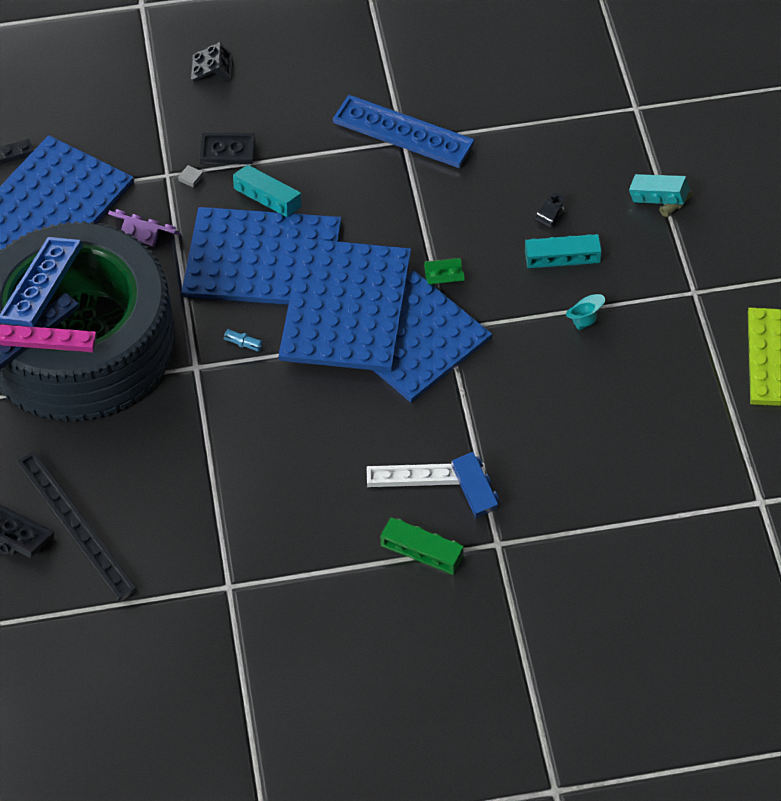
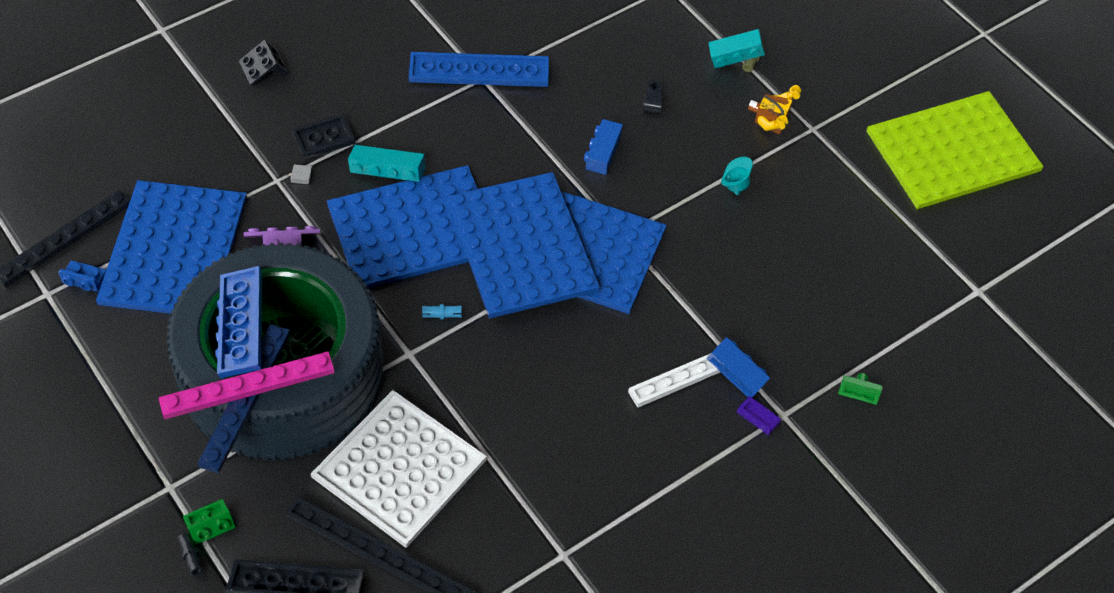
camera: 30 degrees left, 0 degrees up
(131, 459) = (399, 468): none -> white plate
(422, 545) = (721, 443): green brick -> none
(443, 271) = (591, 183): green bracket -> none
(473, 535) = (759, 415): none -> dark purple tile
(476, 241) = (603, 146): none -> blue brick
(562, 251) = (684, 130): teal brick -> none
(581, 547) = (860, 388): none -> green tile
(662, 261) = (774, 109): none -> torso

